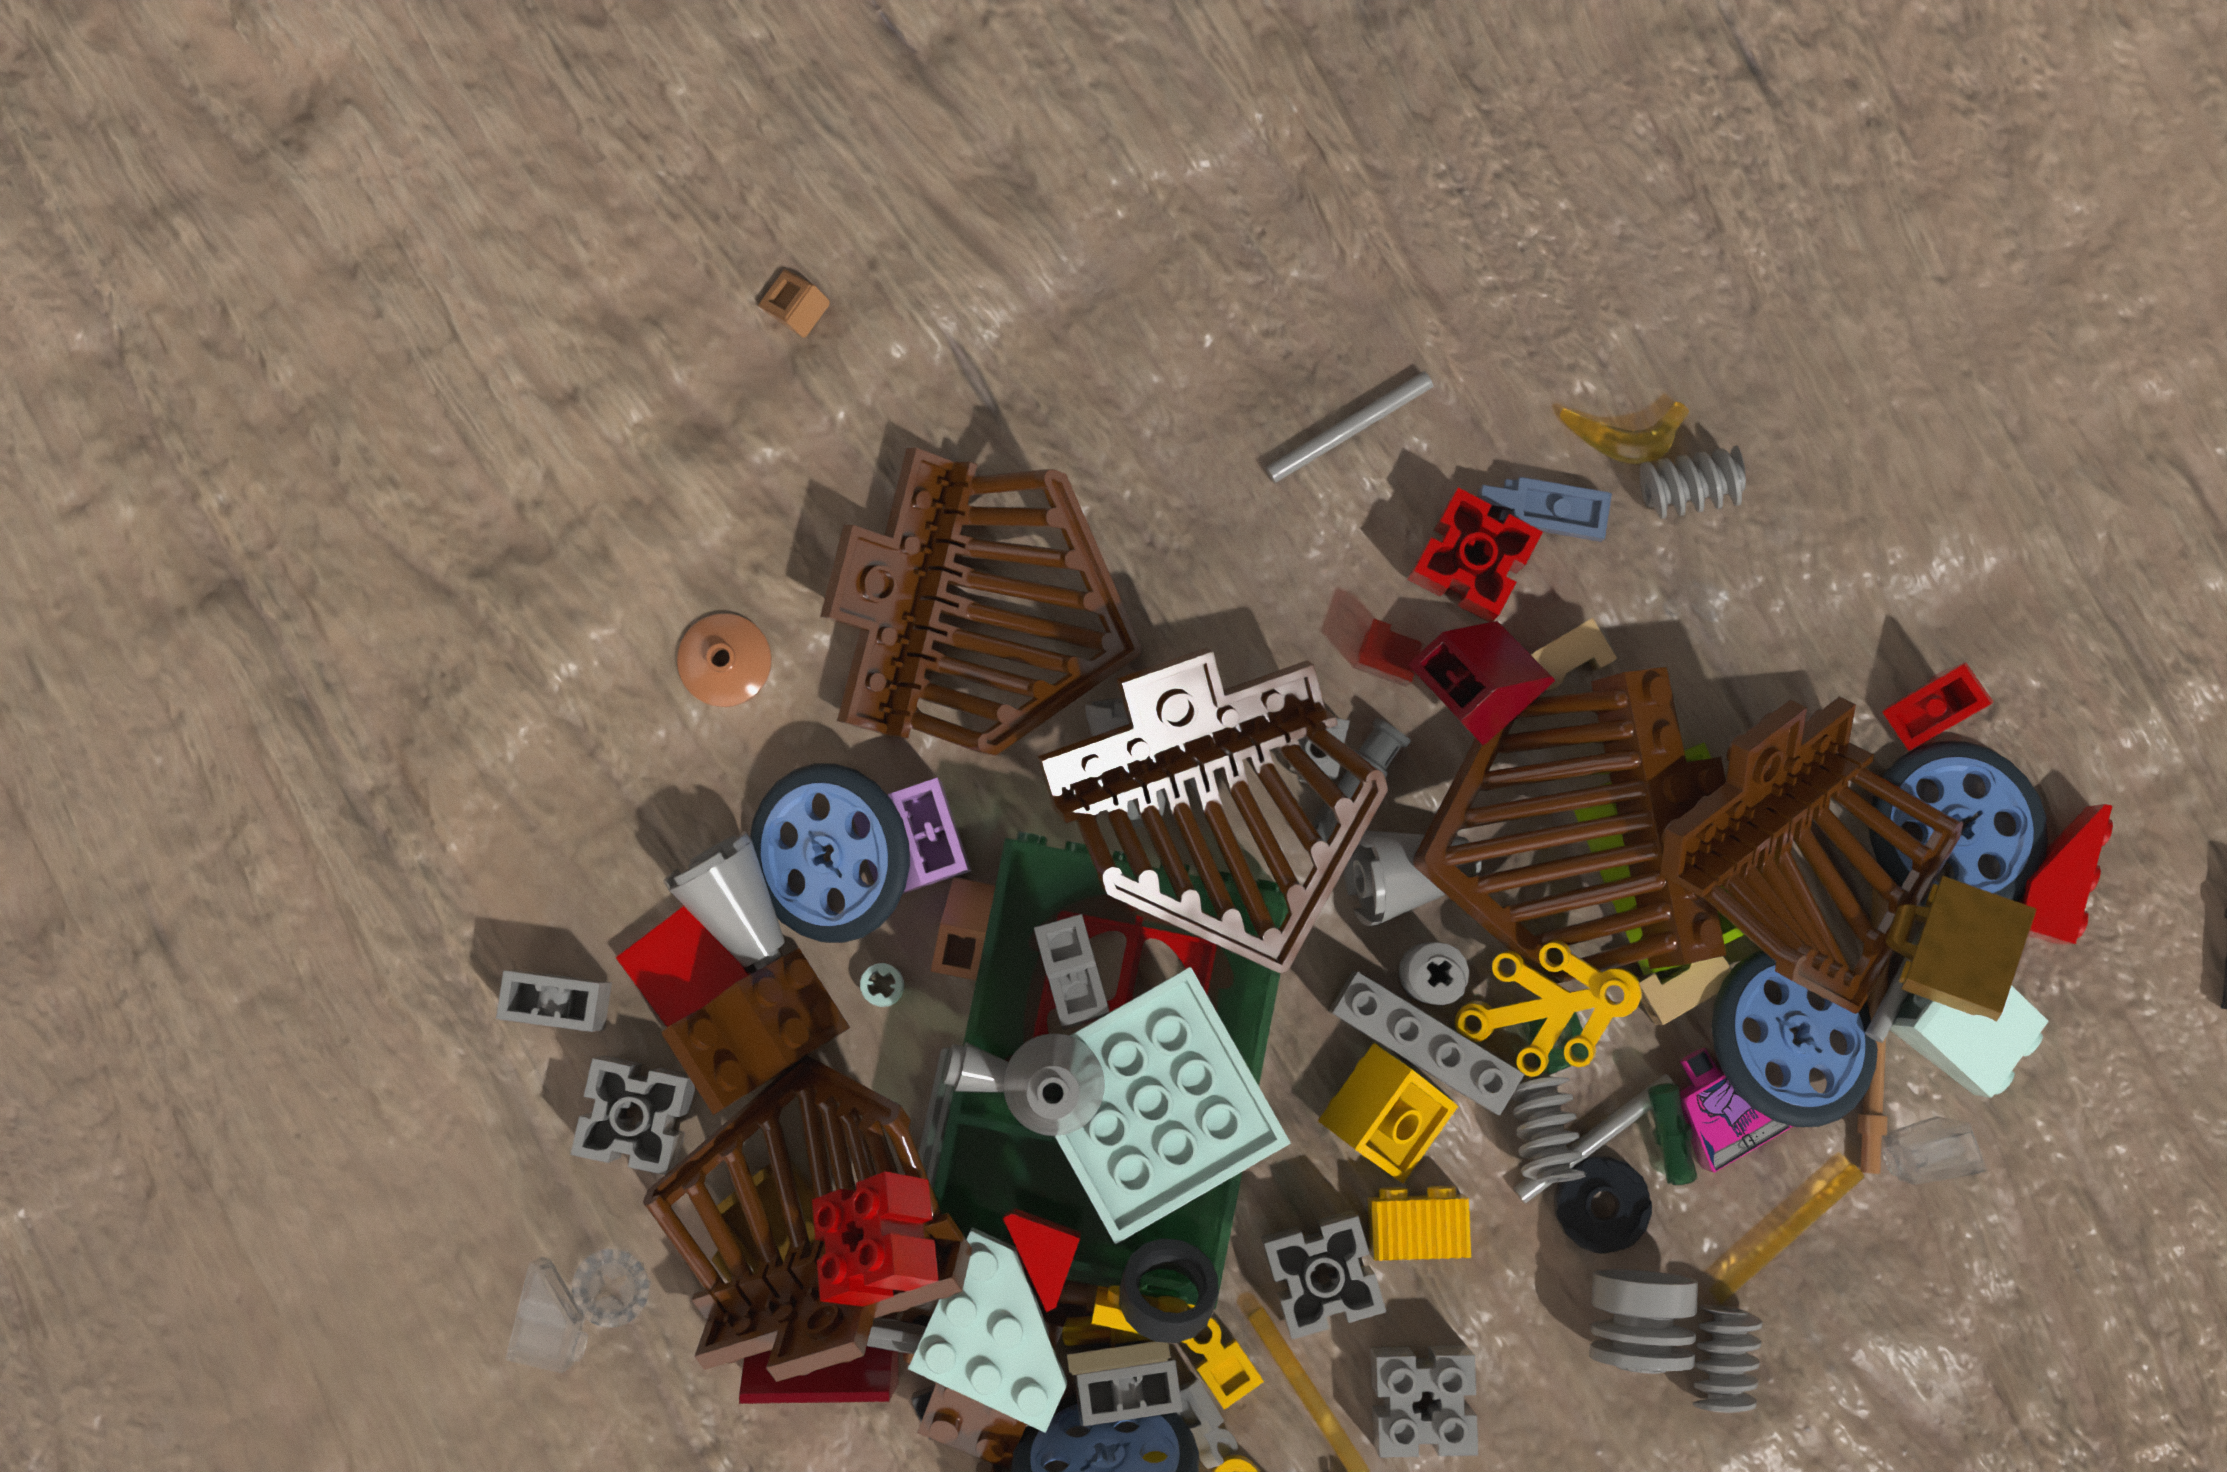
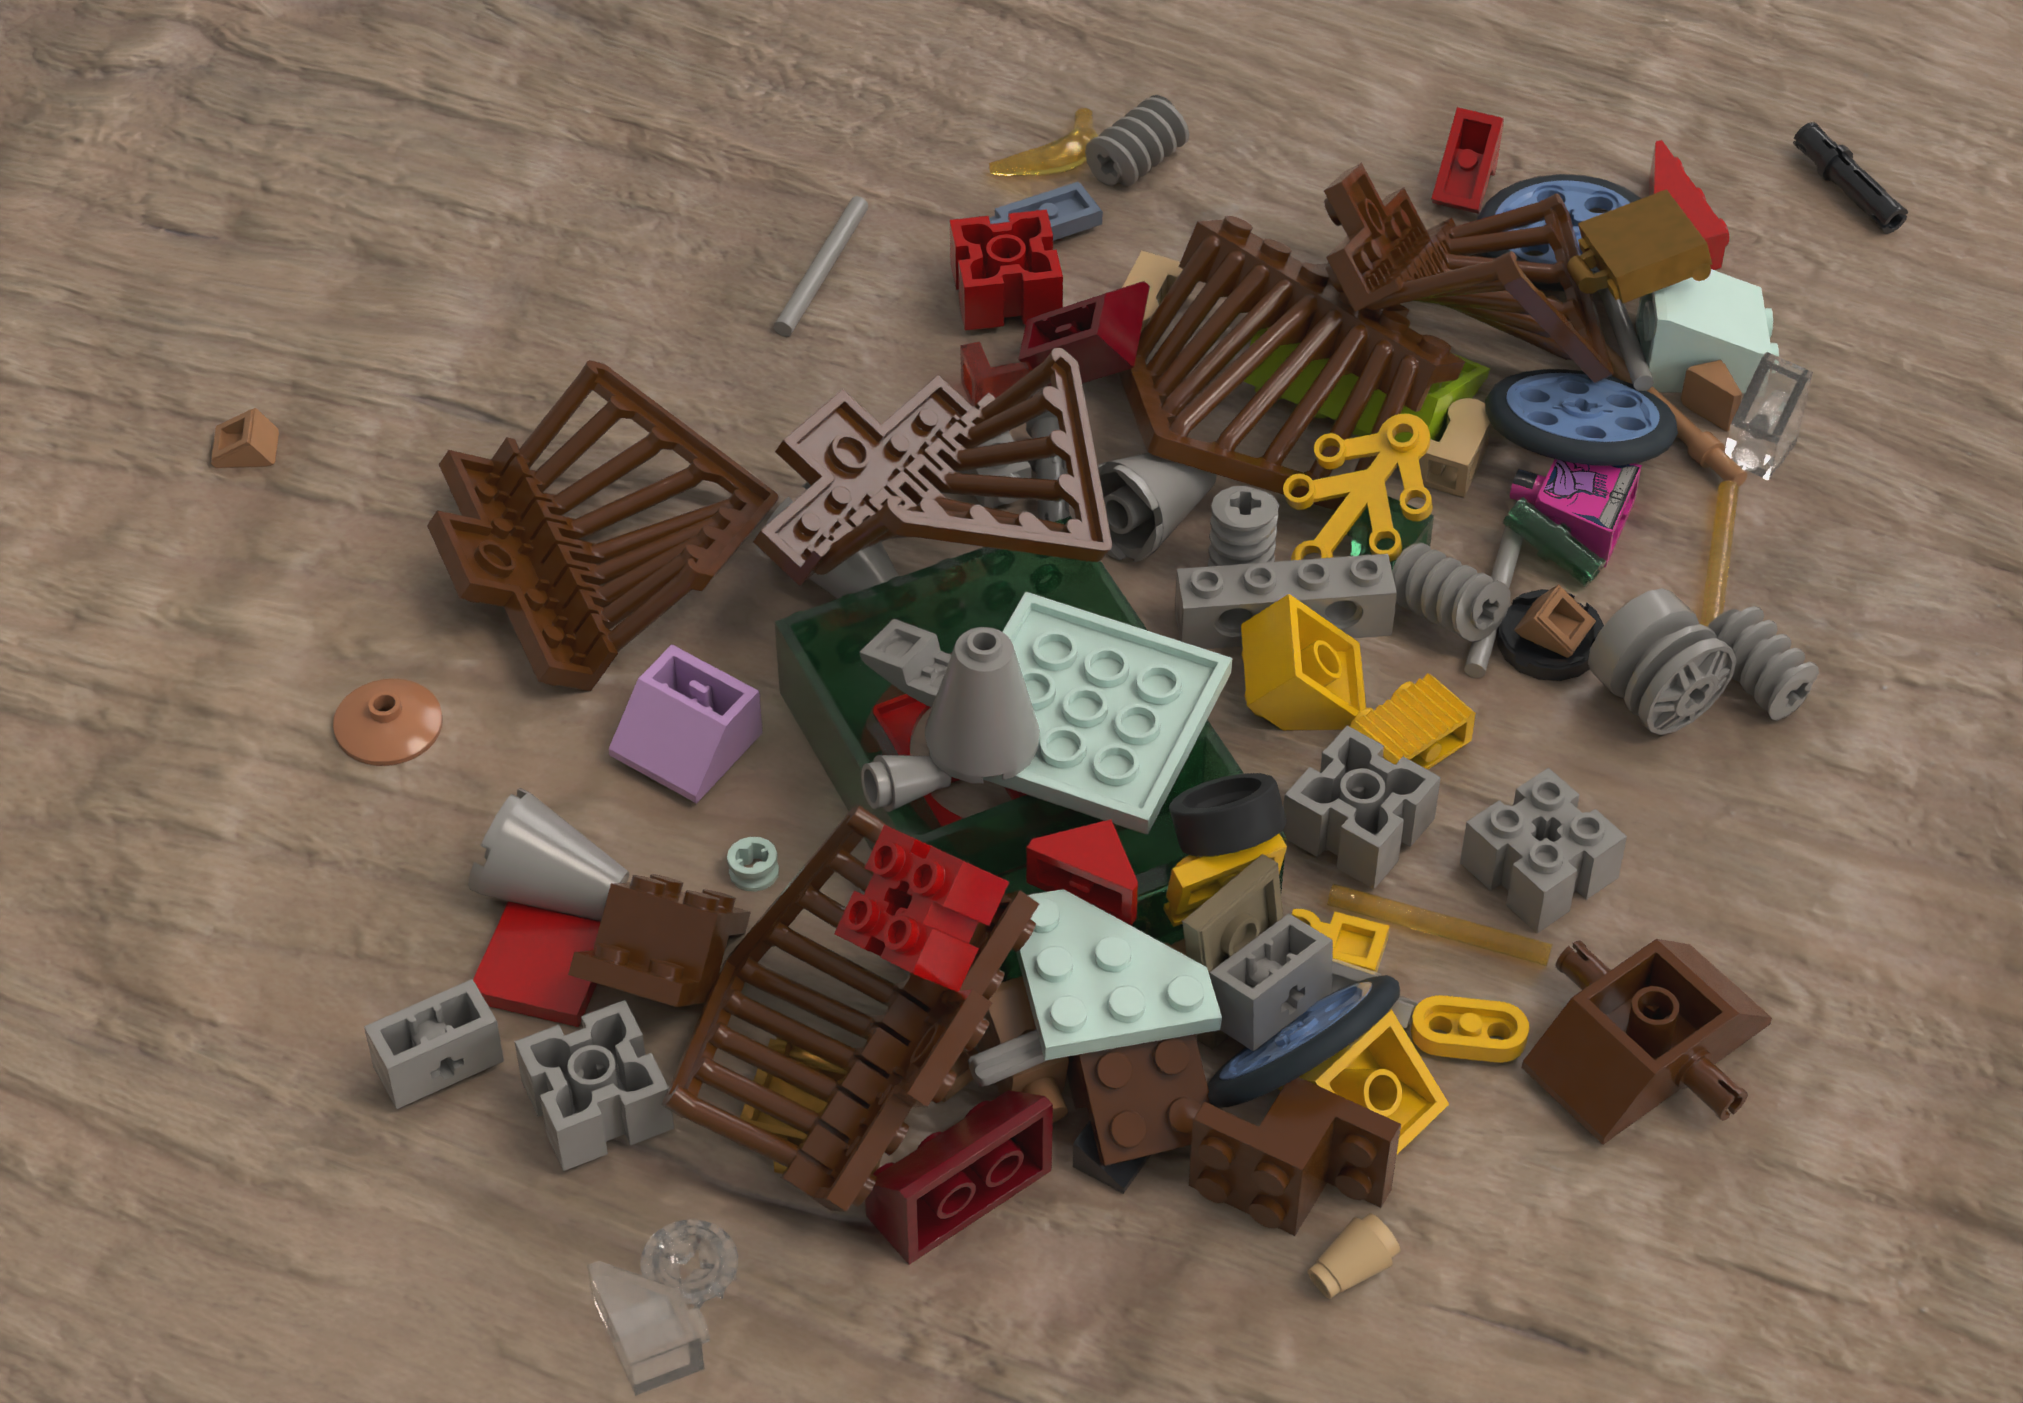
camera: 40 degrees left, 35 degrees down
(884, 845) = (665, 719): medium blue wedge -> none
(963, 929) = (802, 769): nougat slope -> none
(1606, 1209) = (1556, 622): none -> medium nougat slope
(1923, 1084) = (1711, 393): none -> medium nougat slope

